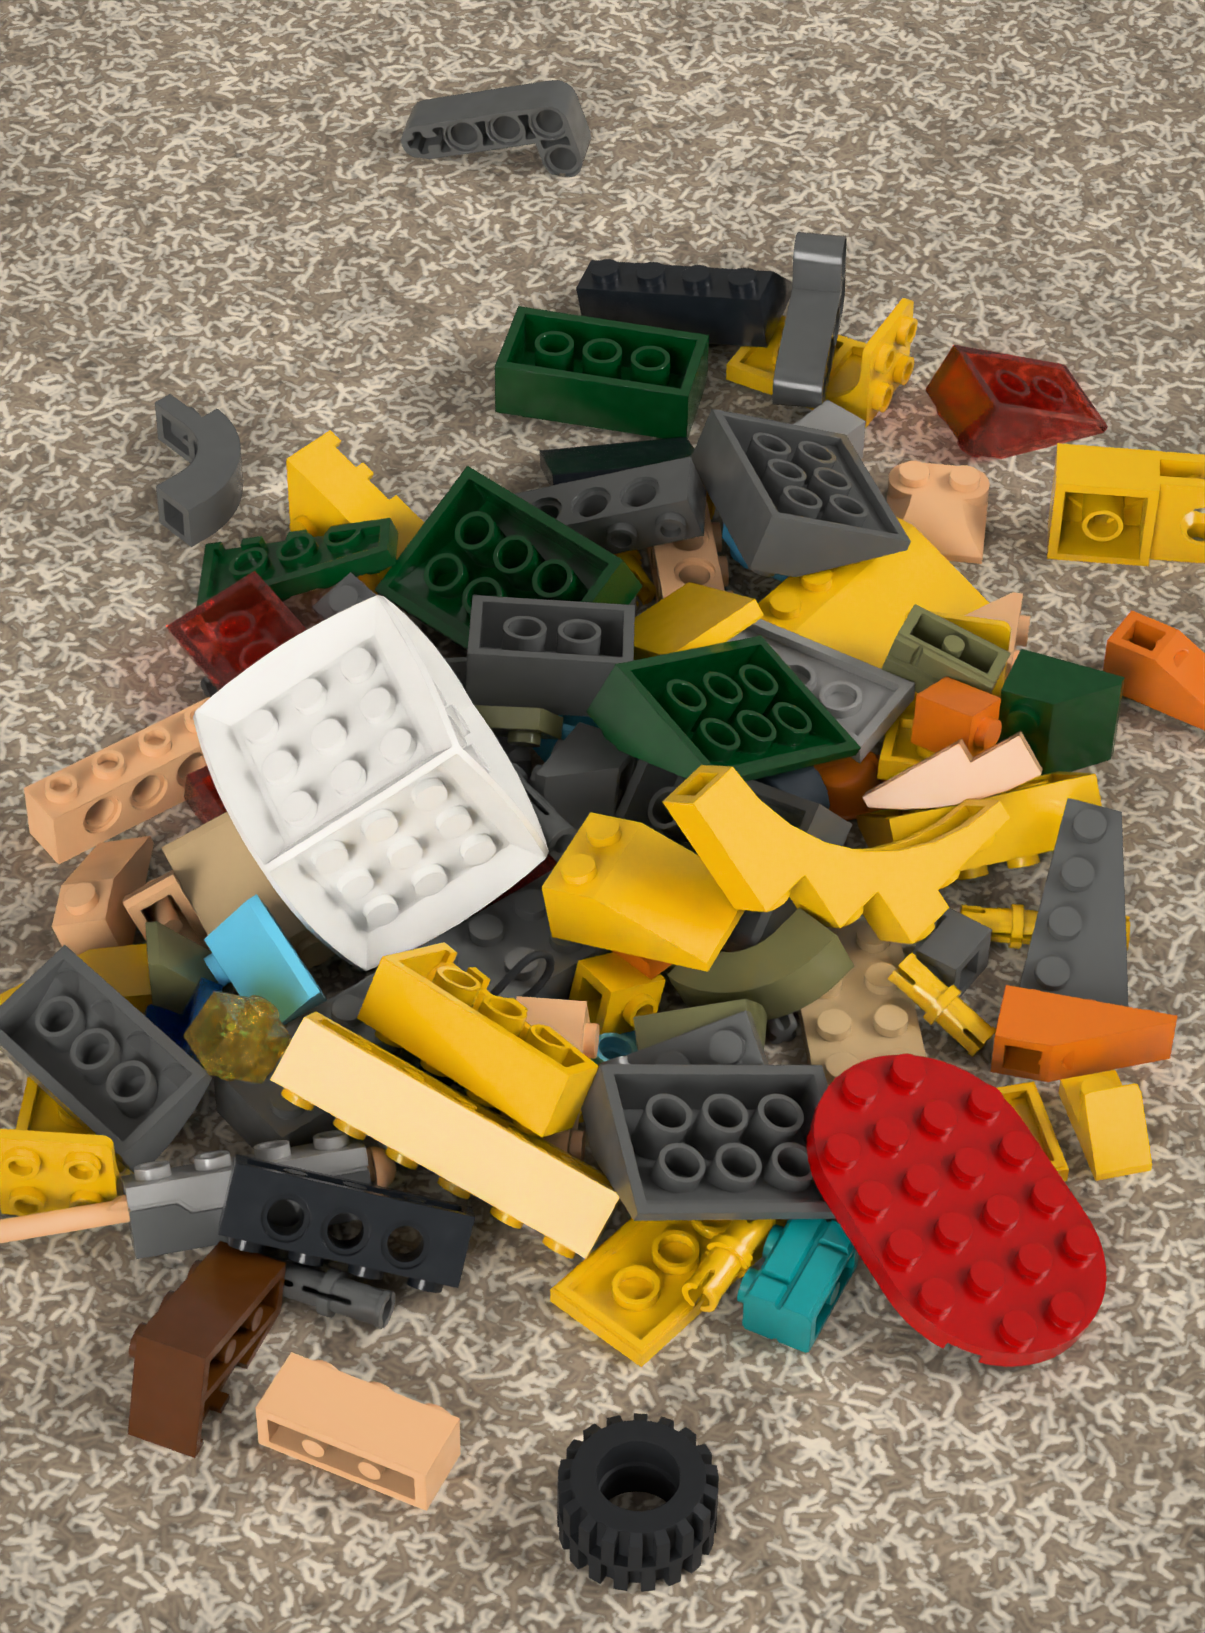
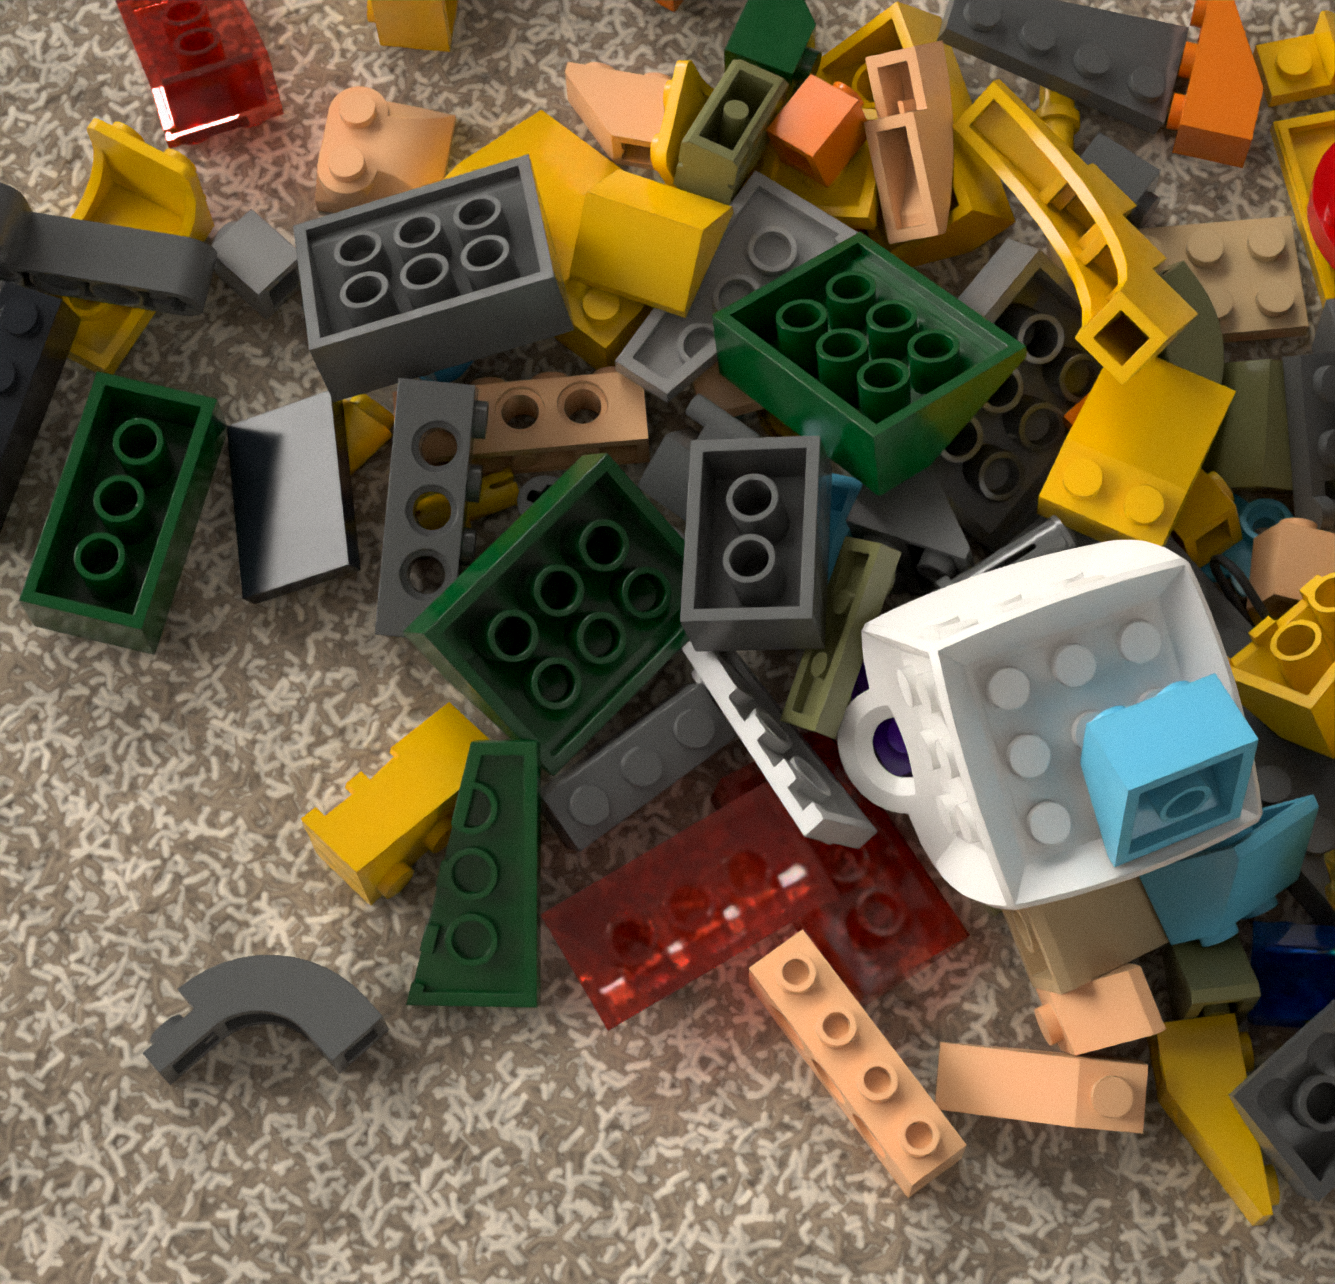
camera: 85 degrees left, 25 degrees up
(287, 761) = (1167, 767): none -> medium azure slope
(692, 619) = (683, 387): yellow tile -> none
(843, 612) = (647, 241): none -> yellow slope
(942, 1004) = (1188, 194): yellow pin -> none

